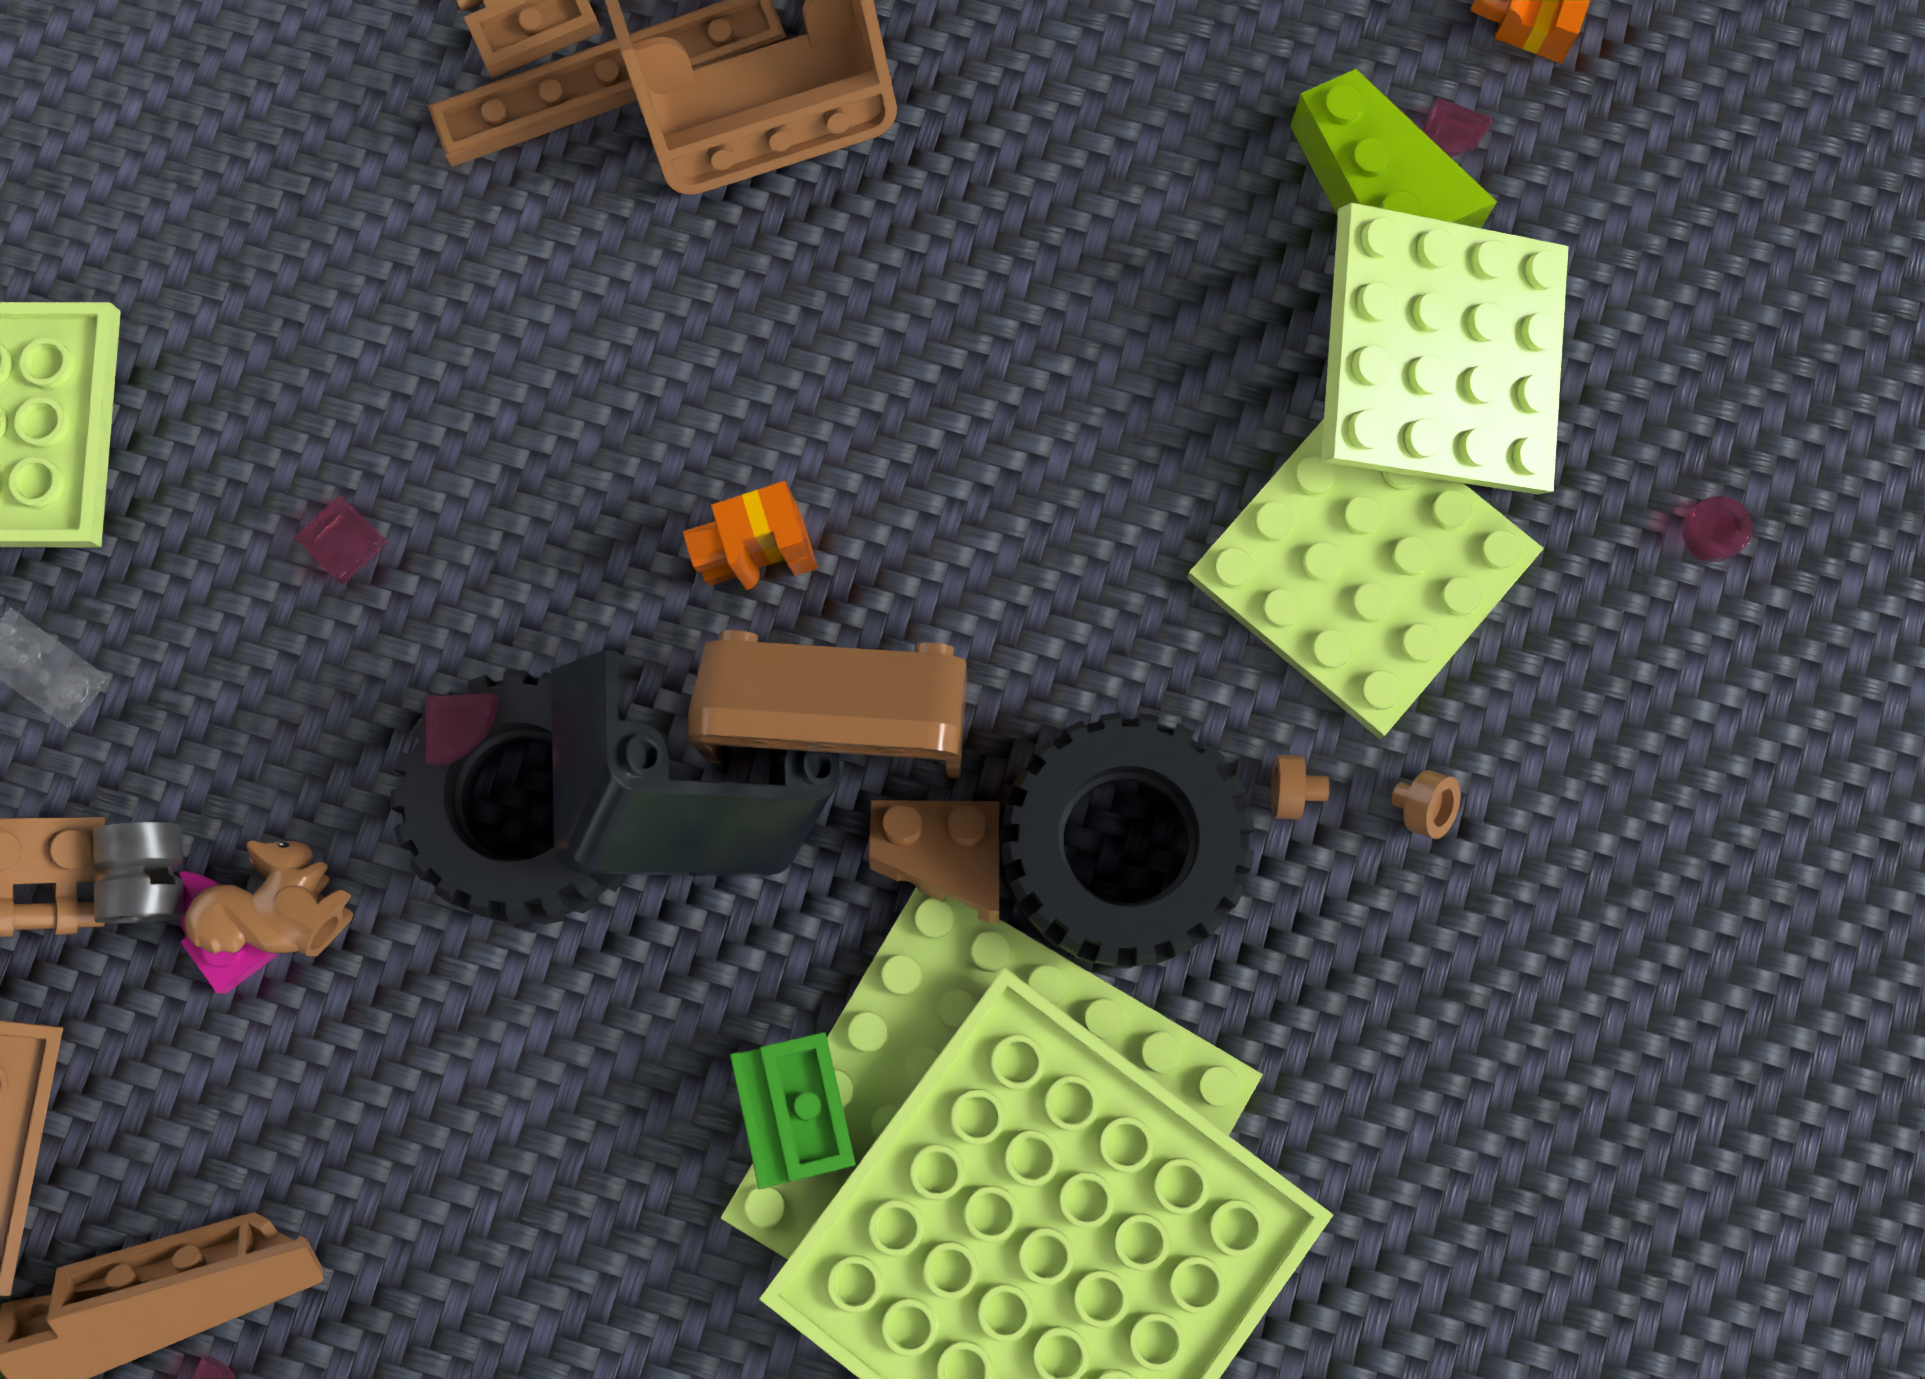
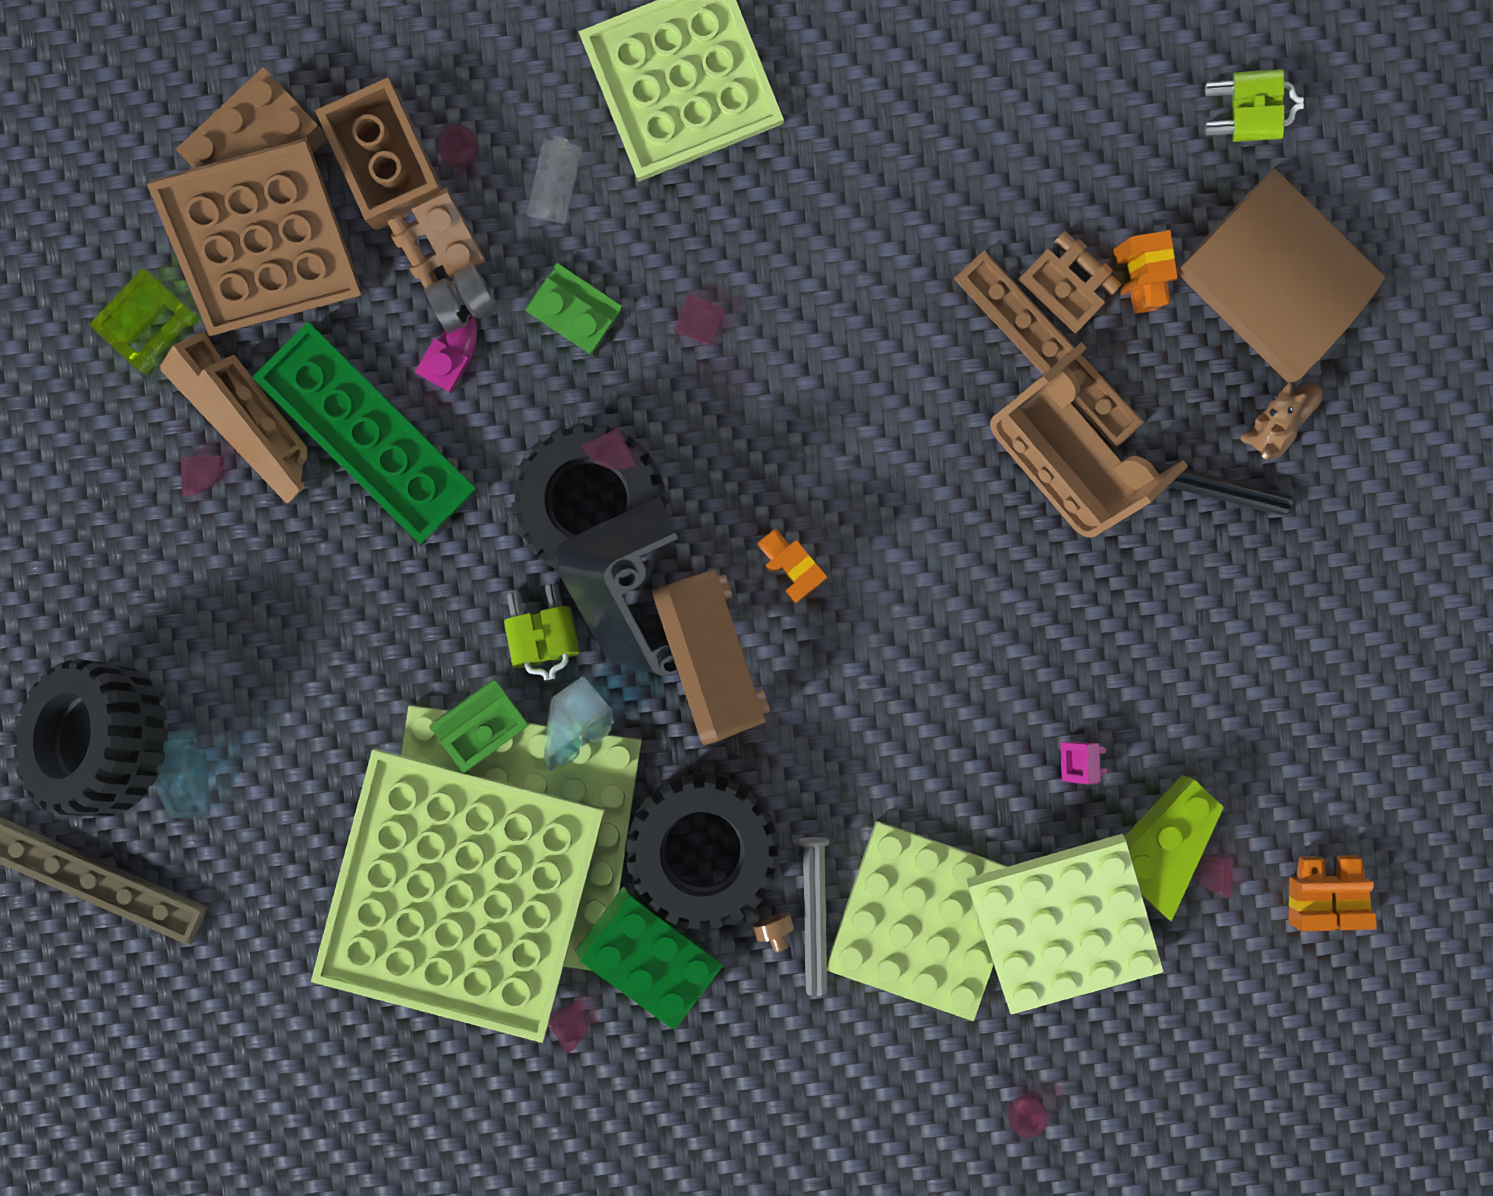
camera: 65 degrees right, 10 degrees up
(239, 715) = (574, 309): none -> bright green plate
(270, 1110) = (365, 433): none -> green plate
(283, 912) = (470, 390): medium nougat animal -> none
(699, 961) = (541, 635): none -> lime piece
(848, 955) = (574, 720): none -> clear light blue slope
(940, 849) = (658, 745): medium nougat wing -> none
(1214, 248) = (1081, 762): none -> dark pink tile
(1261, 992) = (648, 958): none -> green brick
(1296, 720) = (815, 914): none -> light grey axle
(1324, 1168) = (569, 1024): none -> clear pink tile
(1428, 803) = (796, 1009): medium nougat tile -> none

